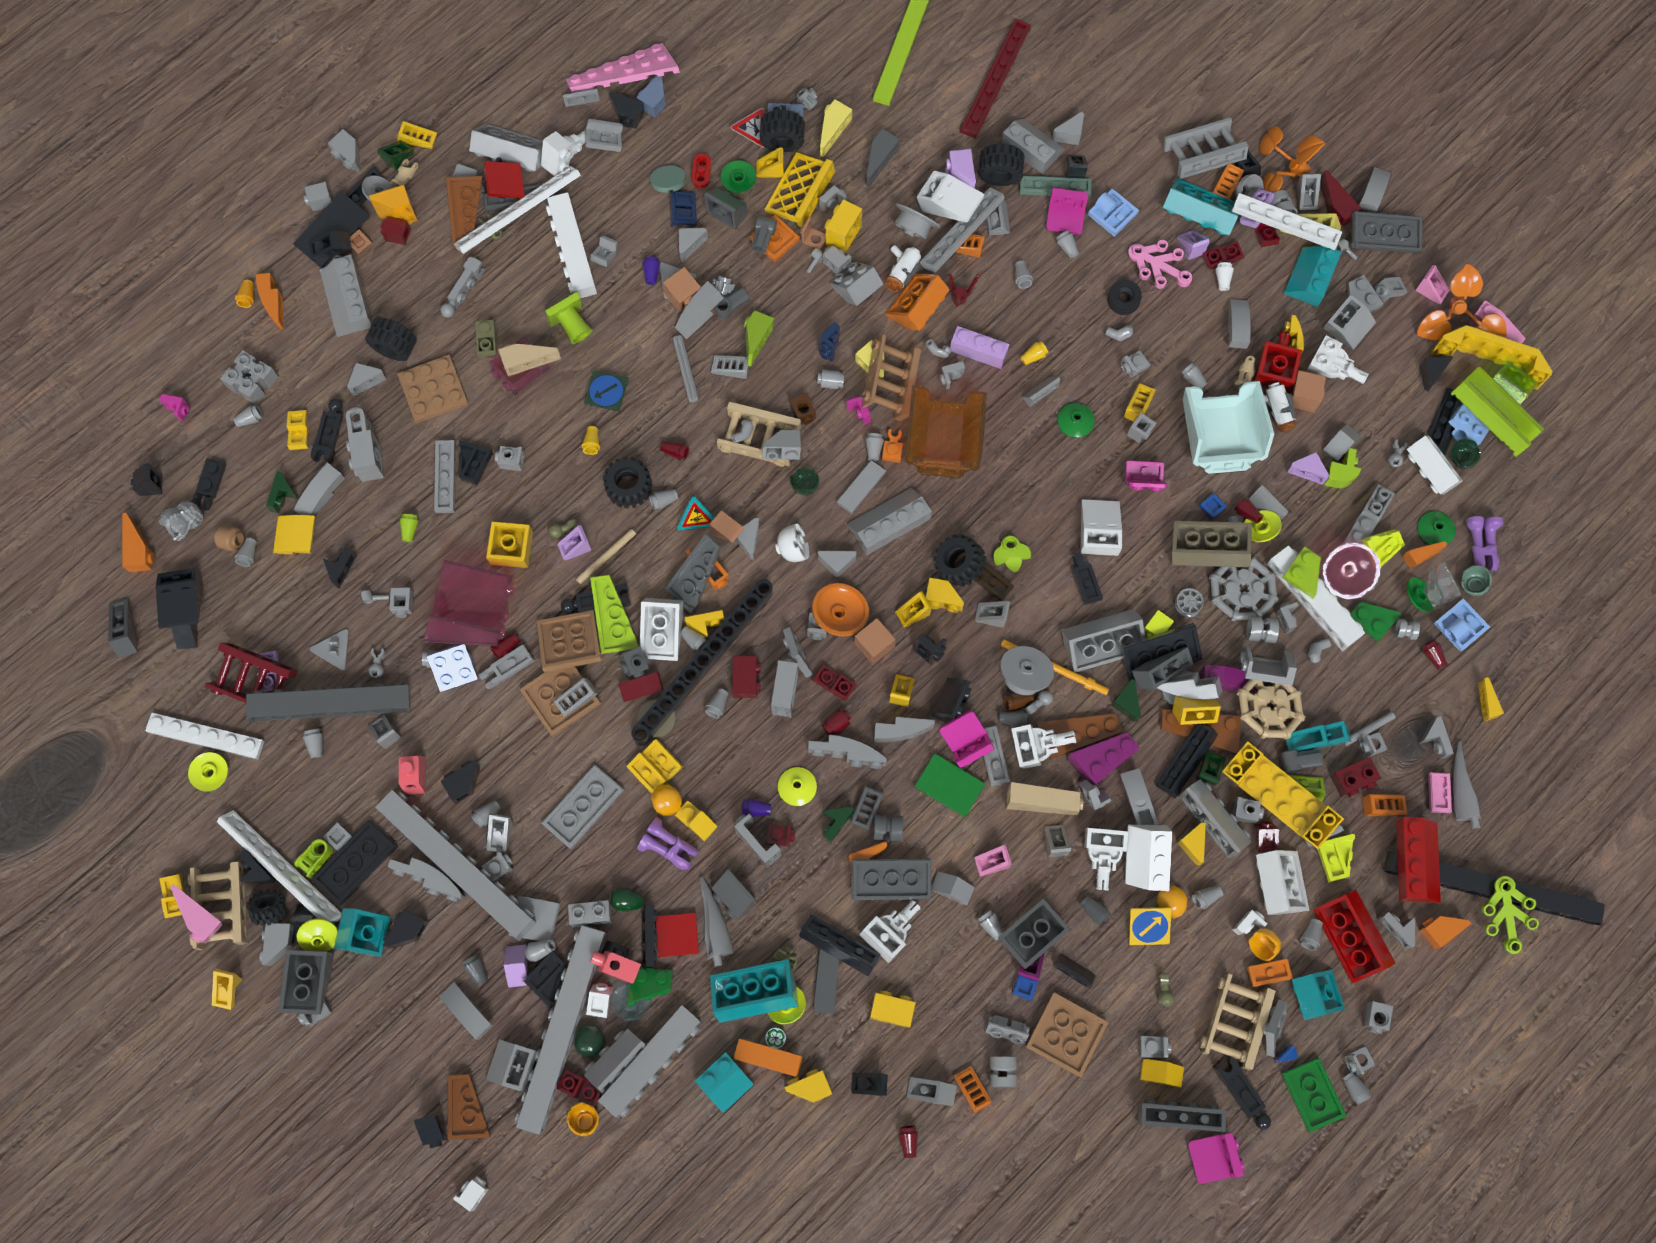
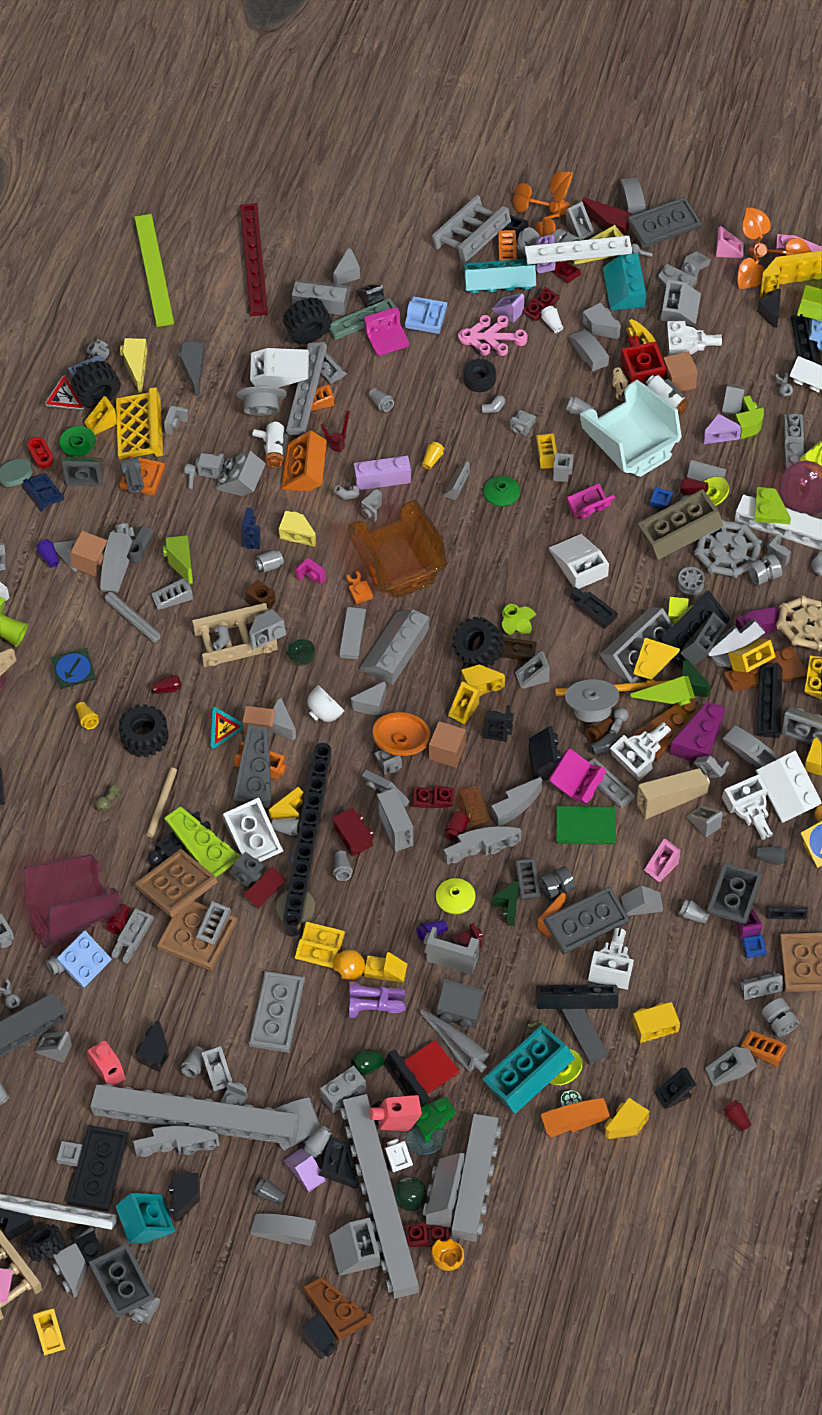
camera: 30 degrees left, 15 degrees down
(313, 858) = (59, 1184): lime piece -> none
(317, 929) = (100, 1236): neon yellow dish -> none
(472, 1193) = (389, 1371): white brick -> none
(509, 544) = (70, 833): yellow brick -> none
(514, 462) = (21, 766): light grey brick -> none
(574, 544) = (128, 803): lavender slope -> none
(662, 499) = (181, 730): light grey cone -> none
(690, 240) = (68, 512): light grey slope -> none
(724, 1082) = (550, 1157): teal slope -> none
(807, 233) = (170, 456): nougat bracket -> none
(843, 226) = (199, 432): yellow brick -> none
(863, 712) = (474, 805): none -> clear orange slope
(874, 445) = (342, 594): light grey cone -> none
(901, 690) = (496, 773): yellow slope -> none
(907, 376) = (335, 524): medium nougat fence -> none
(961, 166) = (274, 336): lavender slope -> none
(1067, 243) = (403, 357): light grey cone -> none
(1098, 703) = (672, 692): none -> lime slope
(1106, 661) = (653, 658): none -> yellow wing
(1211, 768) = (794, 696): dark green slope -> none
(1266, 302) = (600, 322): none -> light grey slope
(1268, 669) = (803, 590): light grey panel -> none

